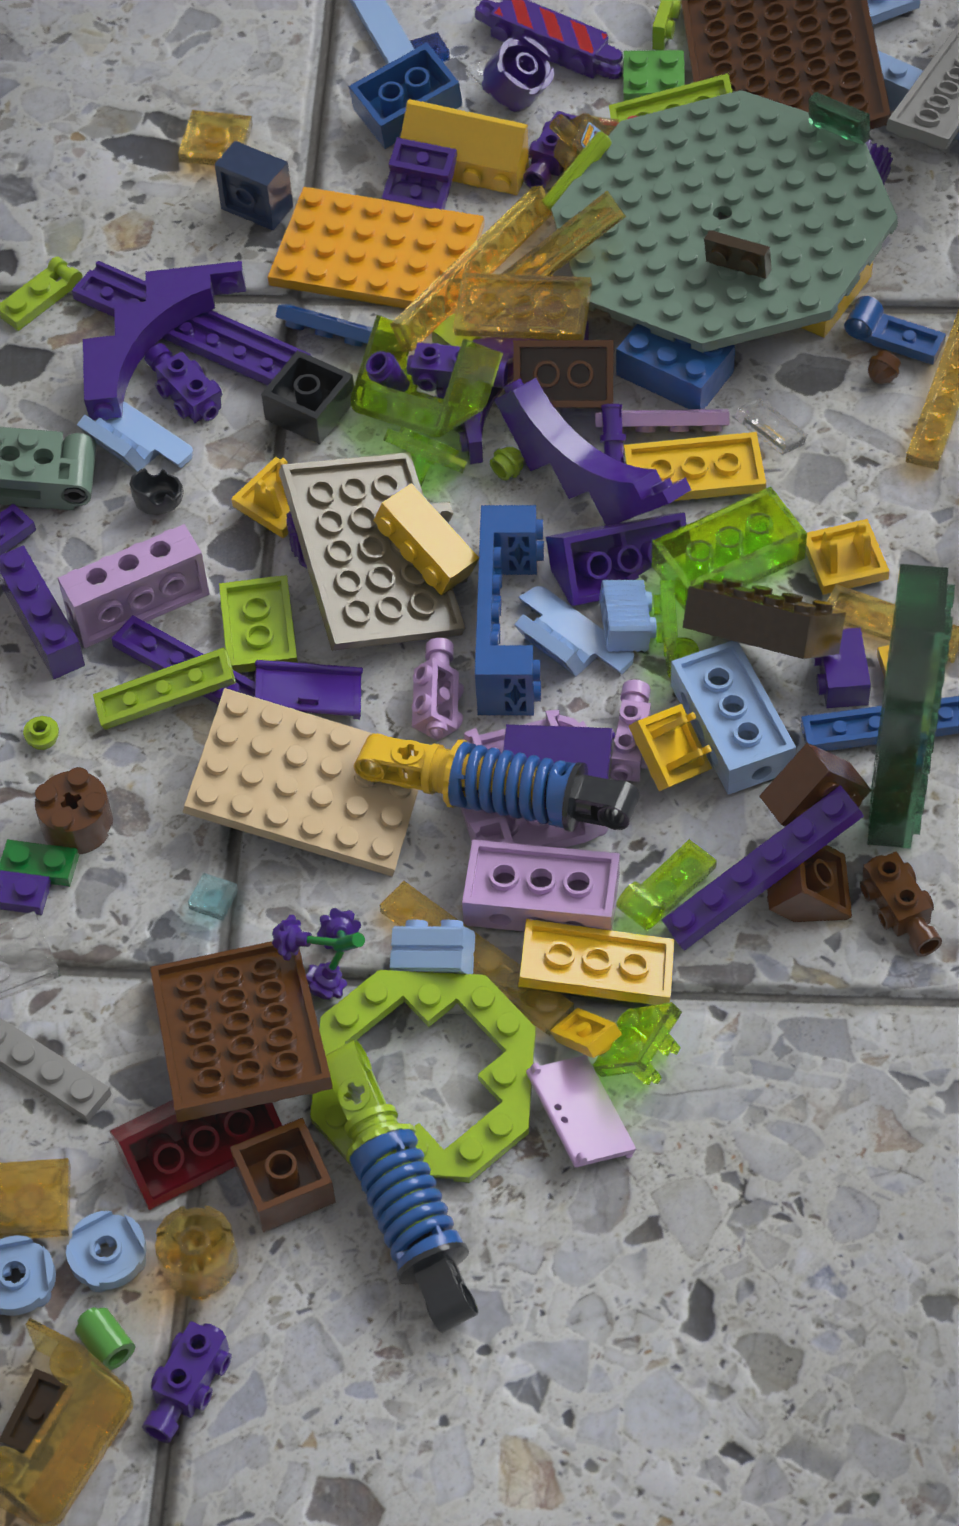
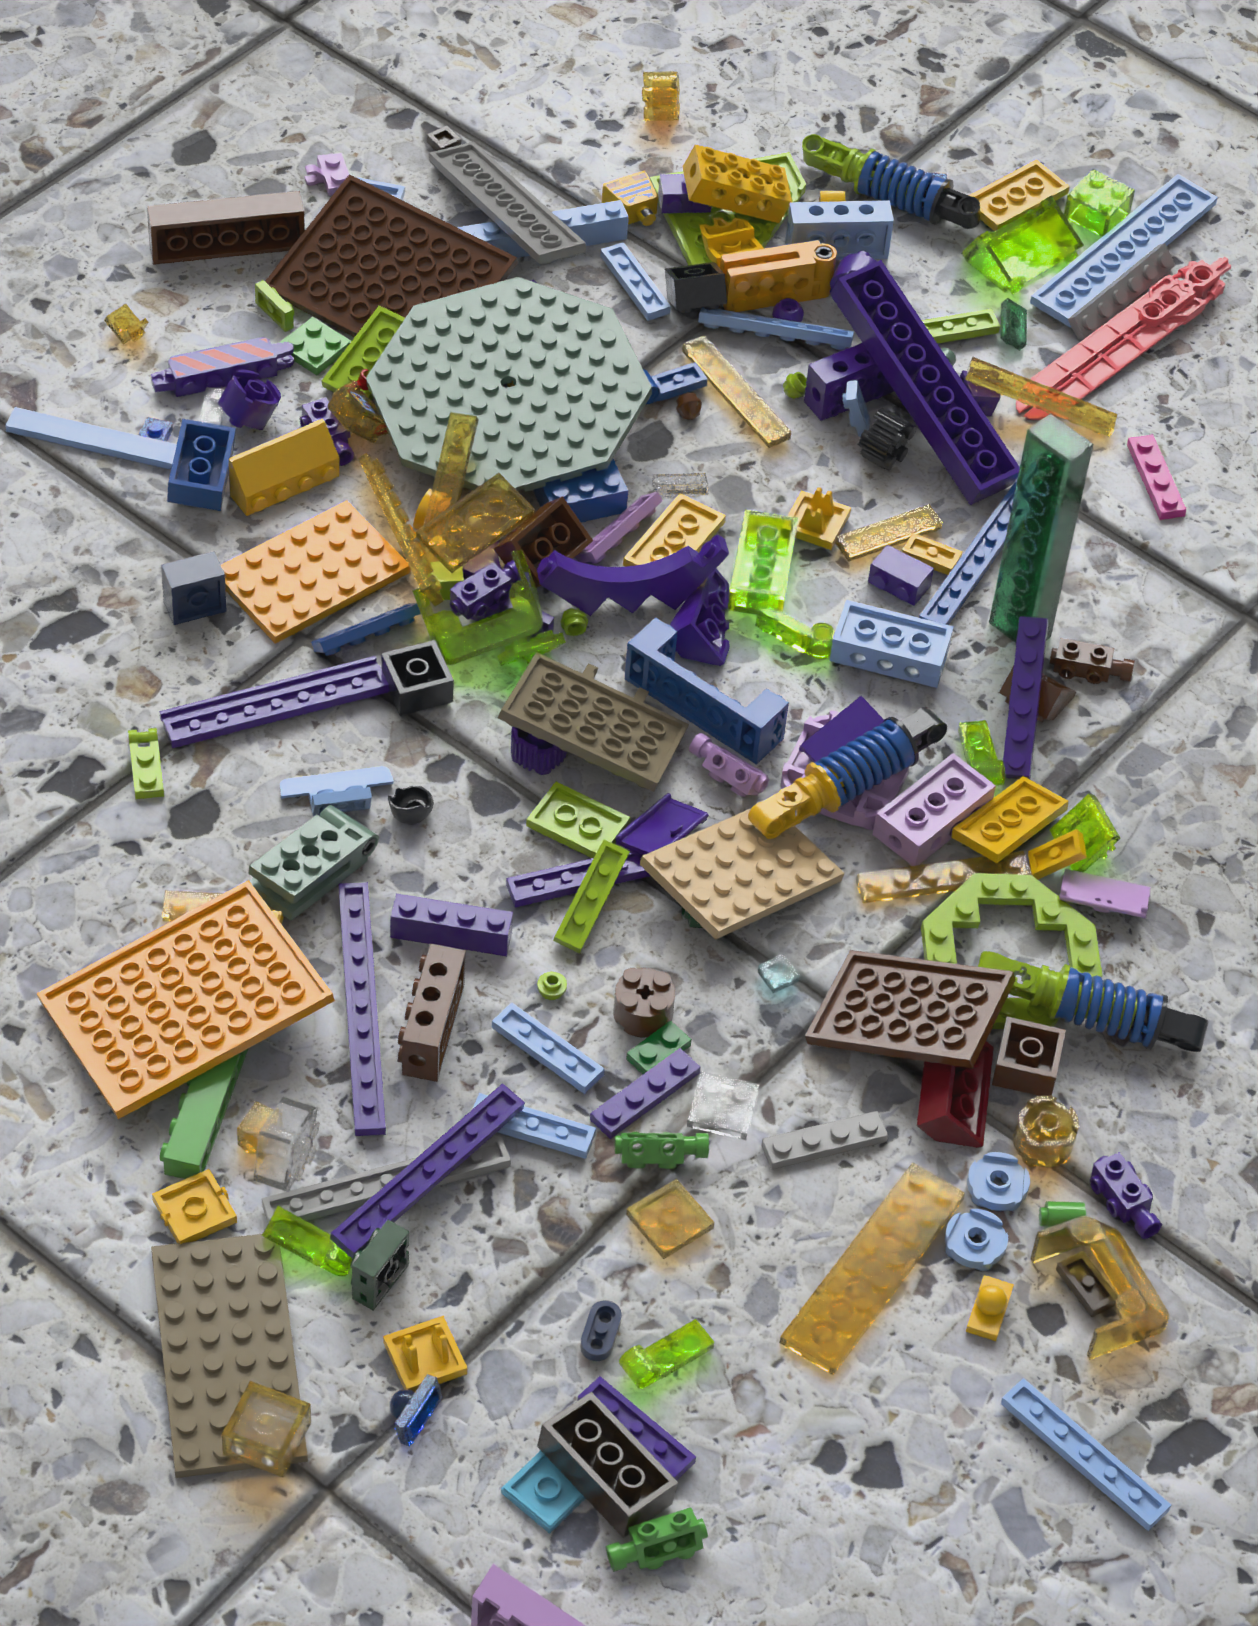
camera: 60 degrees left, 5 degrees down
(119, 588) = (491, 849): lavender brick -> none
(170, 300) = (271, 754): dark purple arch -> none
(179, 378) = (325, 735): dark purple brick -> none
(211, 135) = (110, 585): clear yellow plate -> none
(265, 499) = (480, 746): yellow plate -> none
(336, 931) = (866, 936): dark purple plant -> none
(386, 371) = (446, 622): dark purple cone -> none
(420, 174) = (278, 504): dark purple slope -> none
(425, 539) = (618, 688): yellow brick -> none
(433, 948) = (932, 887): light blue brick -> none
(567, 634) = (747, 680): light blue plate -> none
(591, 153) = (382, 426): lime axle -> none
(612, 431) = (615, 556): dark purple pin -> none
(626, 615) = (761, 642): light blue brick -> none
(626, 756) = (850, 687): lavender brick -> none
(670, 746) = (888, 682): yellow plate -> none
(737, 254) = (566, 393): dark brown plate -> none
(764, 619) = (848, 576): dark brown brick -> none
(808, 780) = (996, 638): reddish brown brick -> none
(839, 118) = (510, 275): clear green plate -> none

